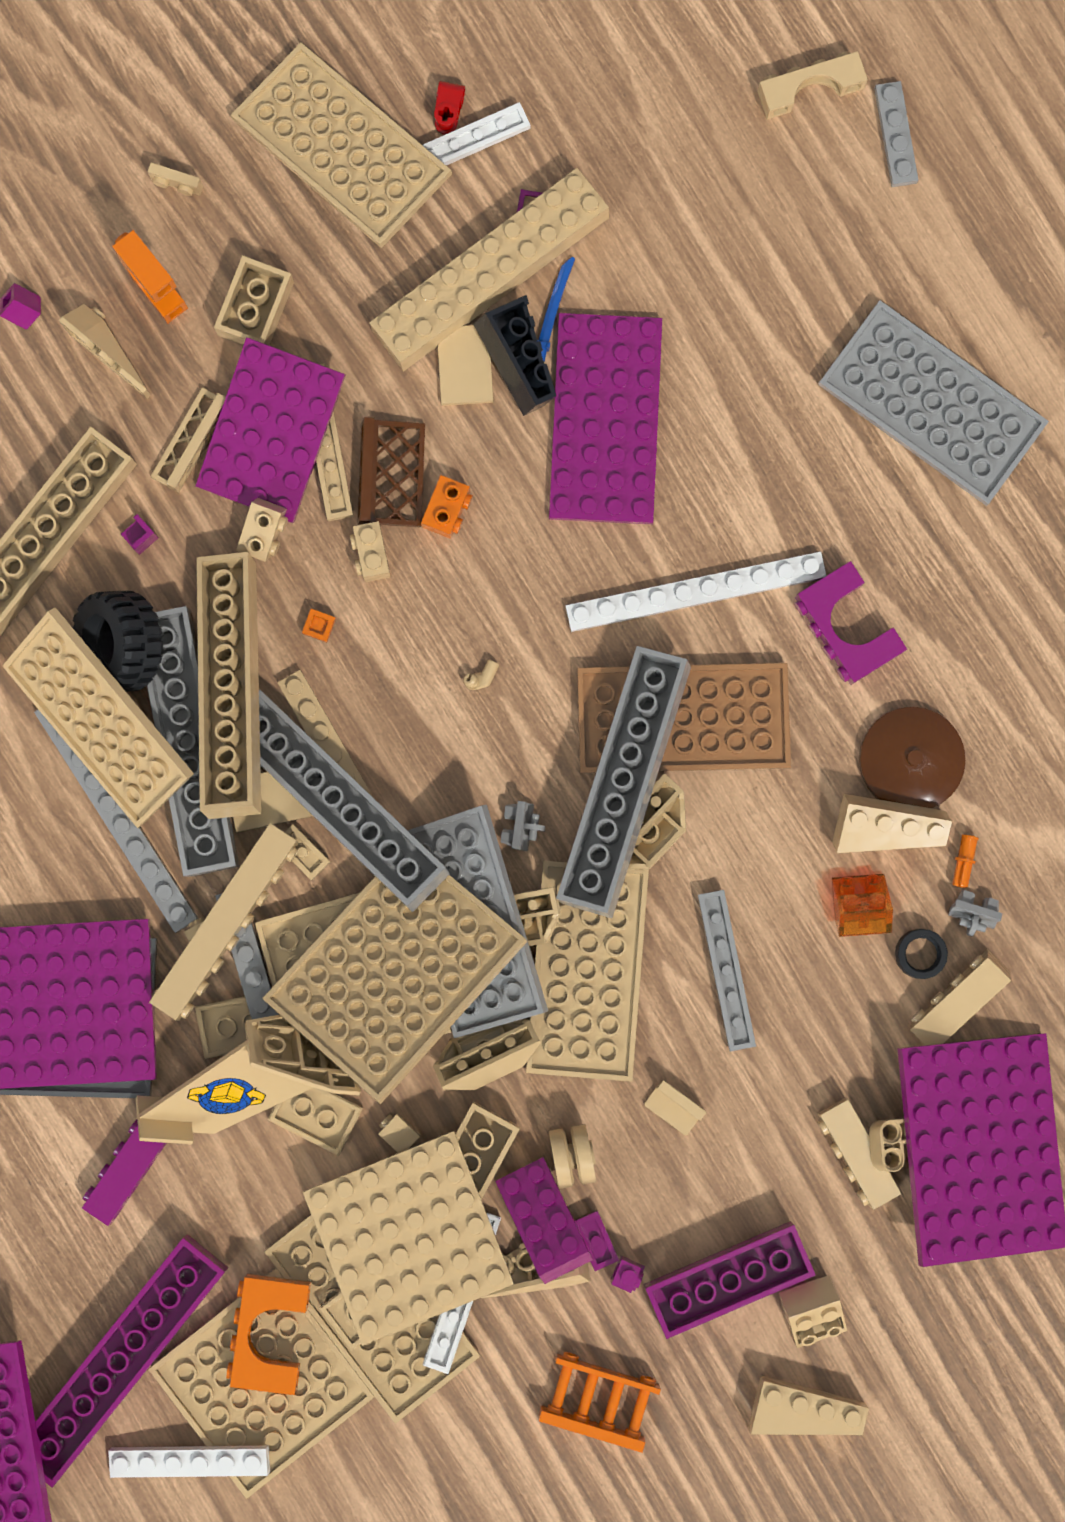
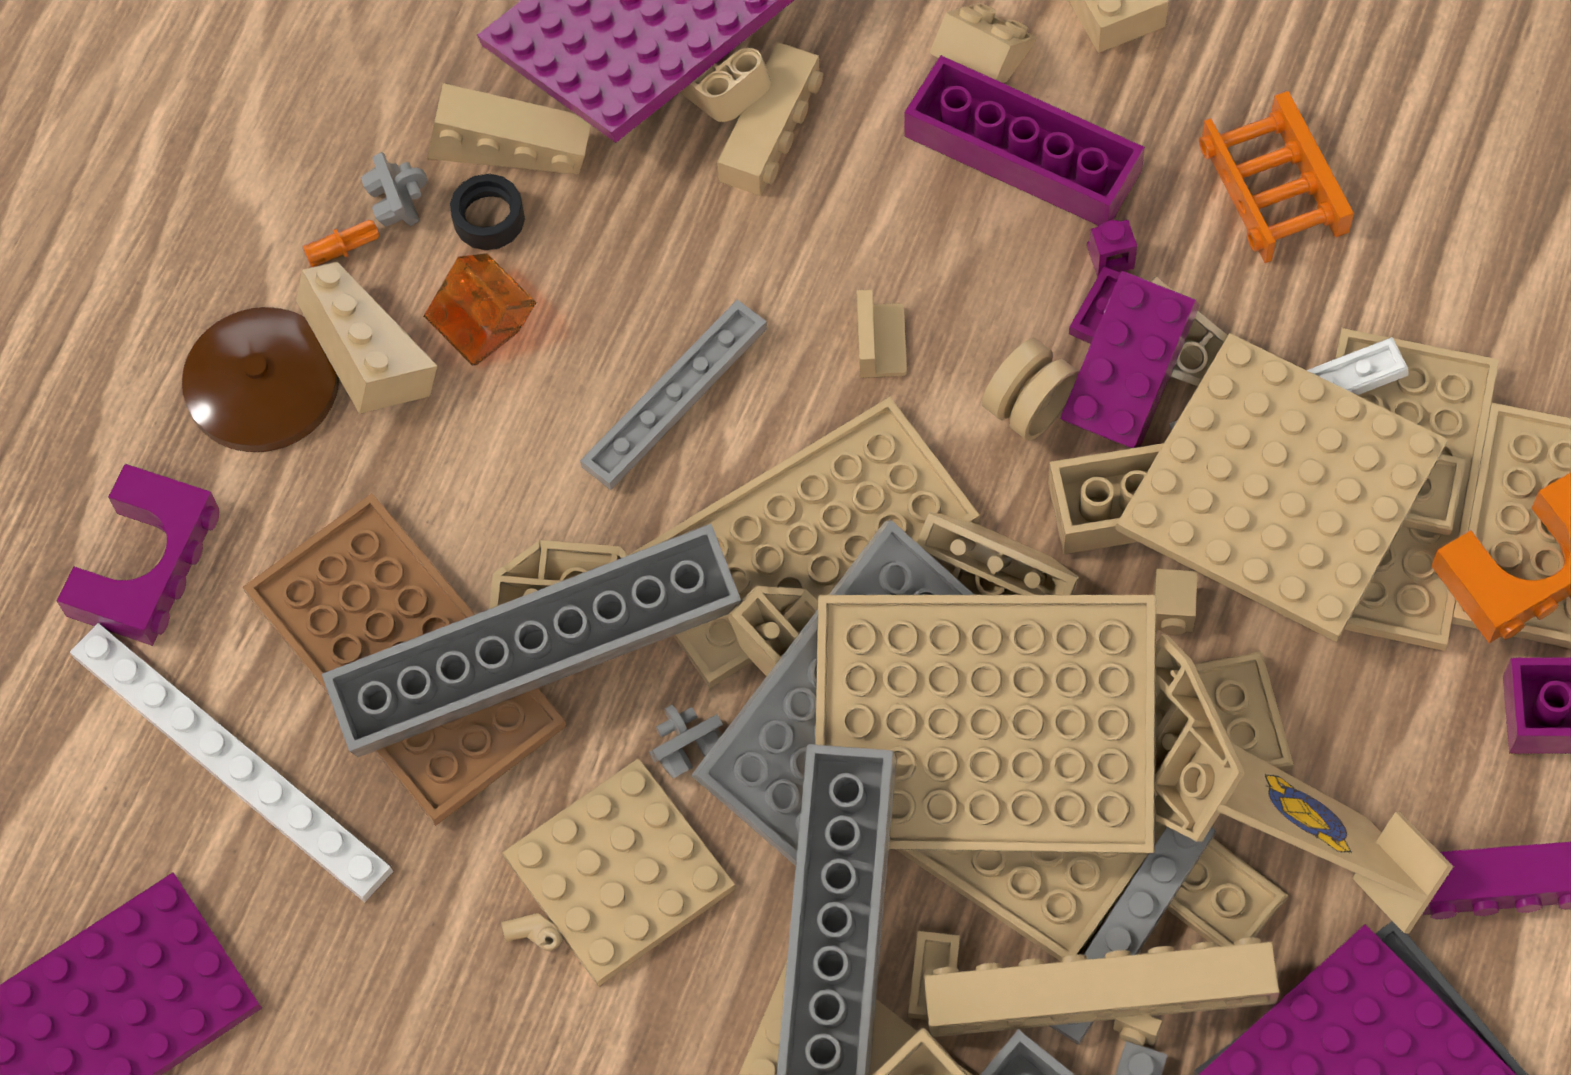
camera: 120 degrees left, 20 degrees down
(481, 741) = (618, 871): none -> tan plate

